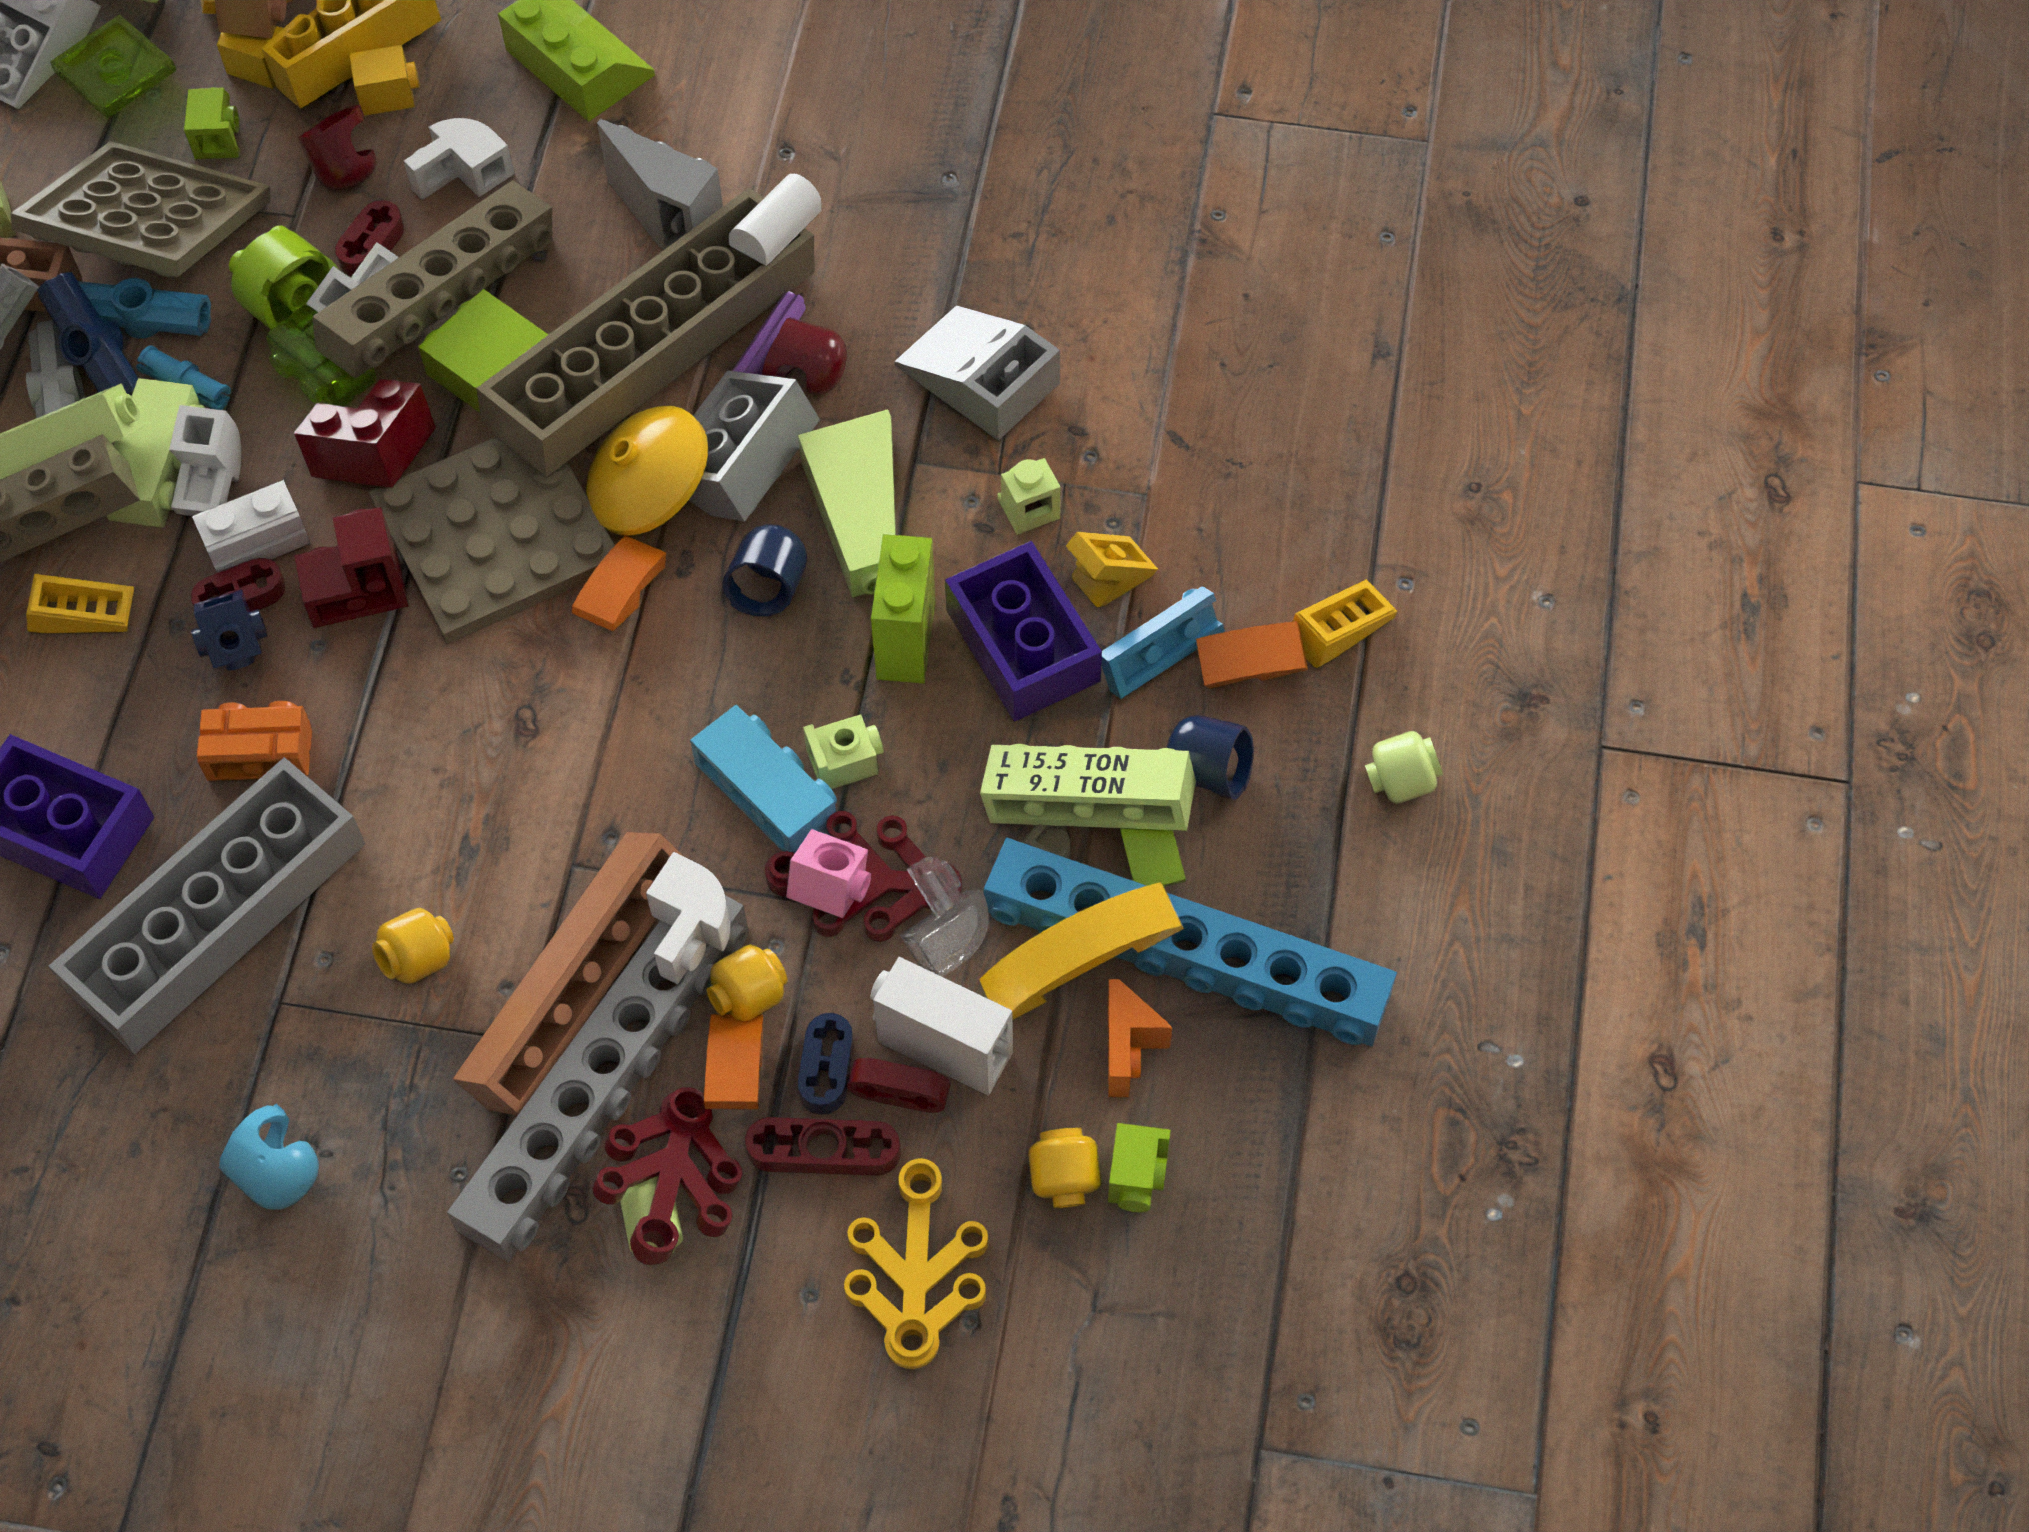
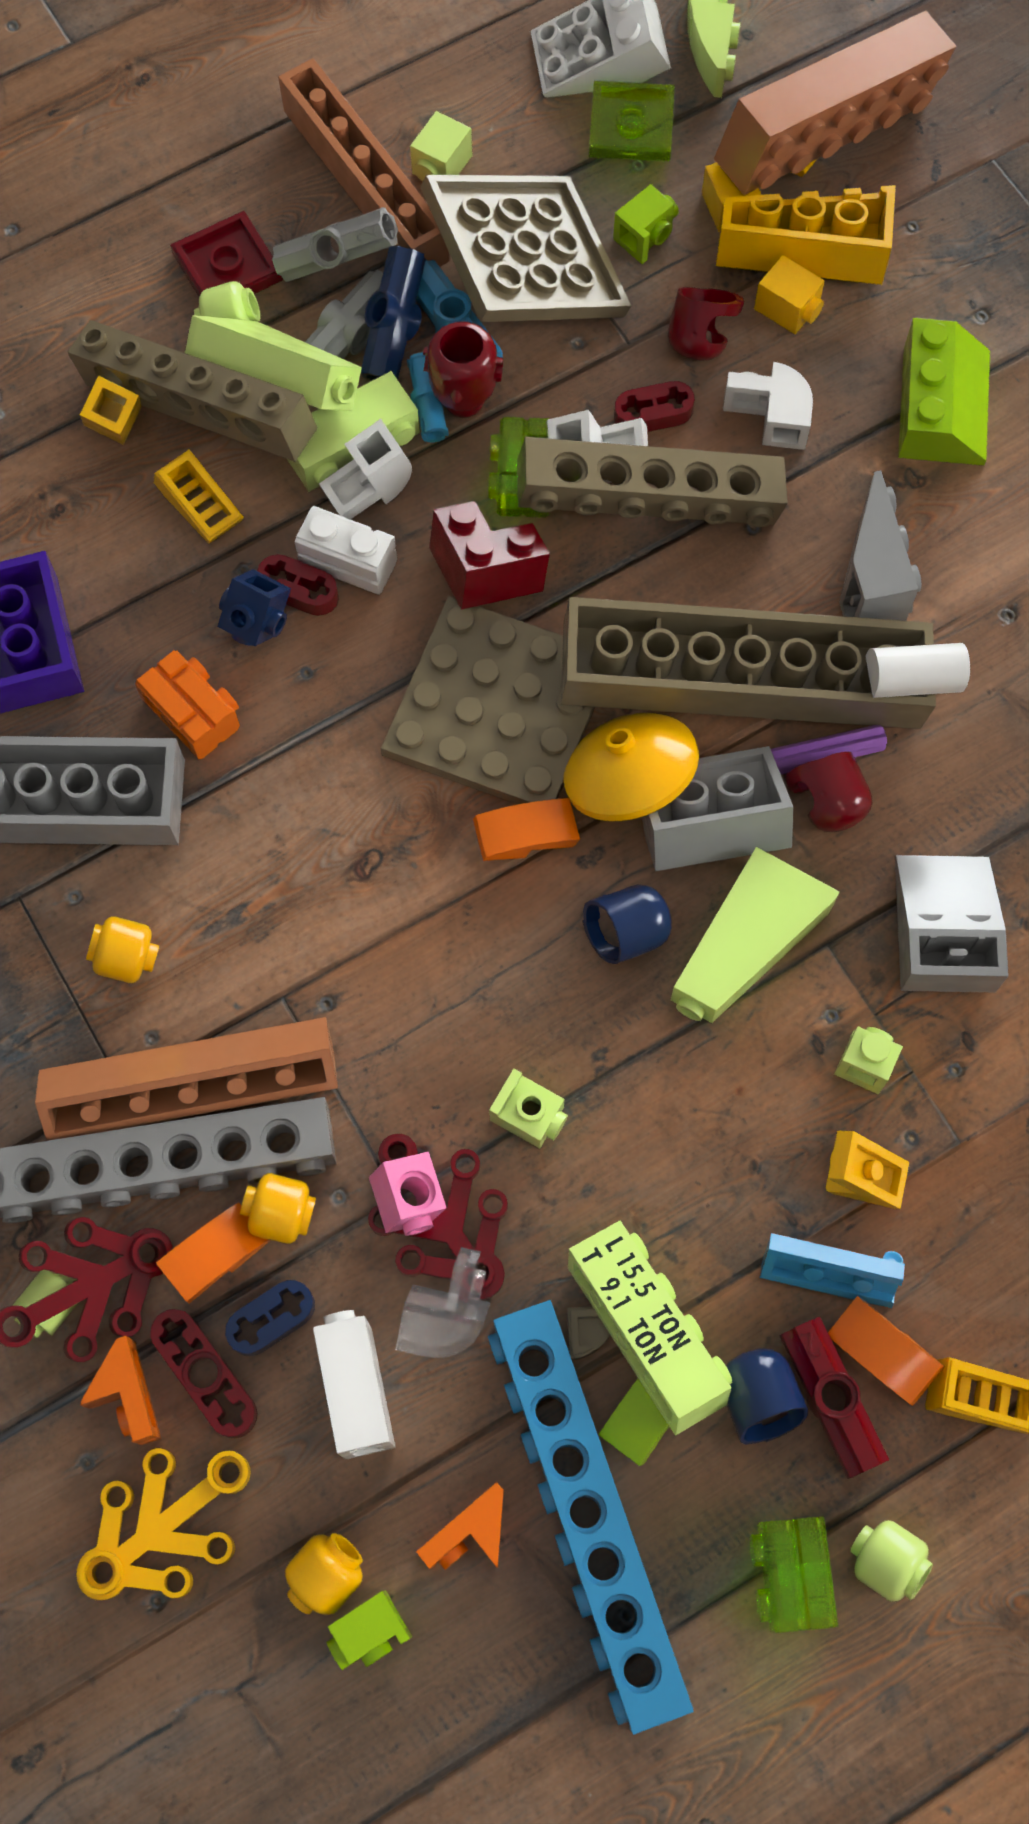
camera: 50 degrees right, 10 degrees up
(198, 323) = (462, 367): none -> dark red piece
(277, 275) = (555, 380): lime brick -> none
(354, 577) = (370, 645): dark red brick -> none
(476, 345) = (630, 561): lime brick -> none
(696, 909) = (293, 1127): white brick -> none
(763, 778) = (455, 1076): medium azure brick -> none
(777, 1203) = (124, 1379): none -> orange slope
(899, 1085) = (292, 1389): dark red beam -> none
(903, 608) = (674, 1055): lime brick -> none
(1023, 630) = (742, 1158): dark purple brick -> none
(1080, 944) = (507, 1439): yellow slope -> none
(1282, 718) = (849, 1429): none -> dark red piece
(1358, 838) = (795, 1575): none -> clear neon green brick

